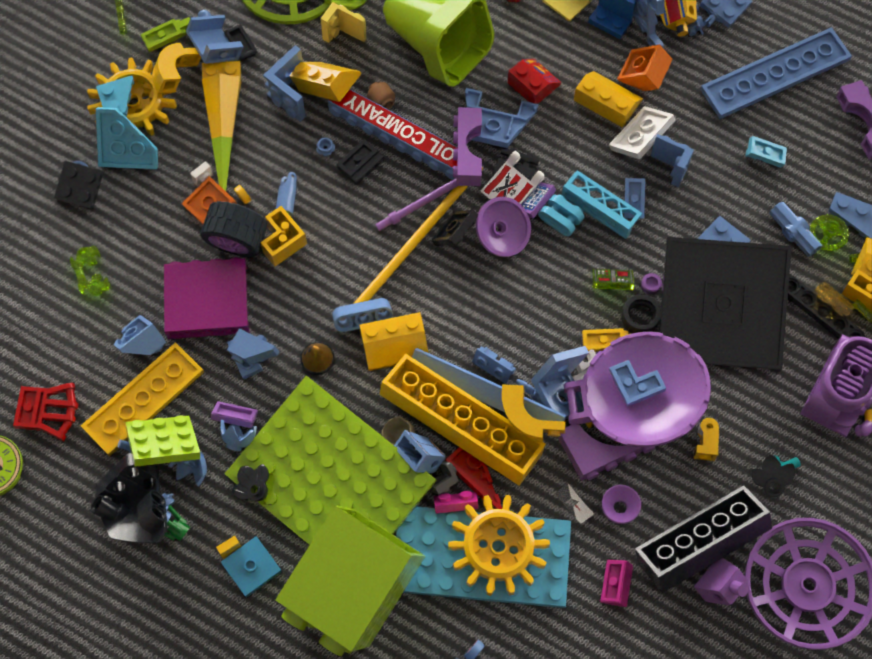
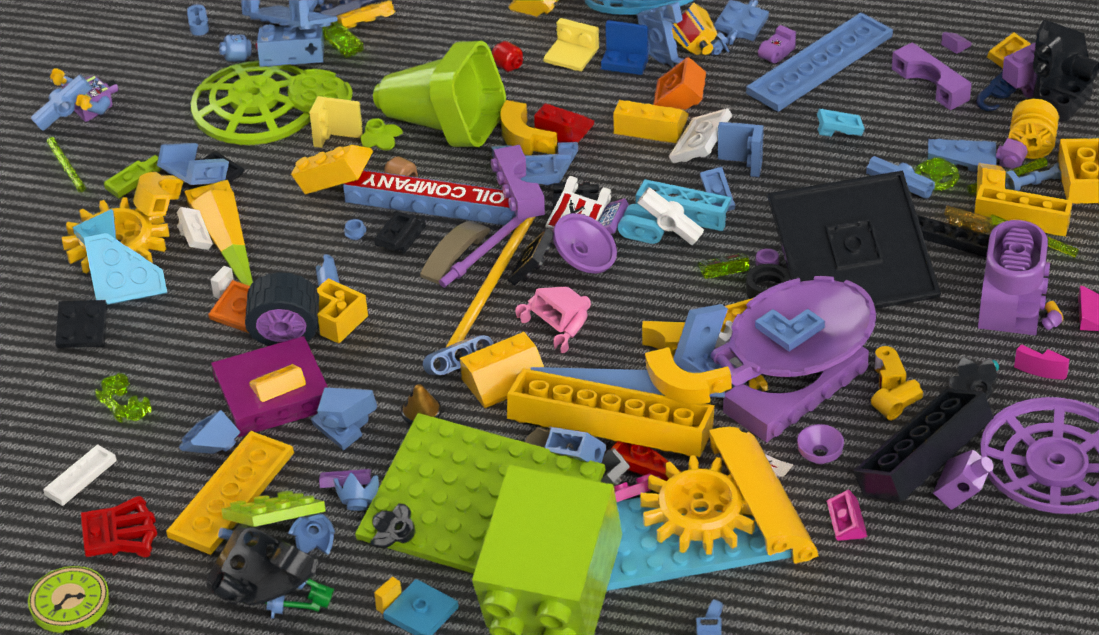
camera: 15 degrees left, 25 degrees down
(33, 343) = (79, 475): none -> white plate
(196, 108) = (193, 228): none -> white hinge
(208, 304) = (278, 382): none -> yellow slope
(278, 83) = (285, 182): medium blue bracket -> none
(380, 48) = (380, 134): none -> lime plate
(397, 192) = (451, 249): none -> dark tan slope
(460, 291) = (560, 309): none -> bright pink torso
(487, 361) = (618, 360): medium blue hinge -> none
(495, 90) = (518, 133): none -> yellow arch
(538, 347) = (662, 334): none -> yellow arch
(554, 547) = (763, 493): none -> yellow cylinder
(583, 221) = (670, 216): none -> white piece
(697, 476) = (894, 401): none -> yellow piece
(746, 44) = (778, 45): none -> medium lavender leg
(841, 479) = (1044, 365): none -> dark pink slope

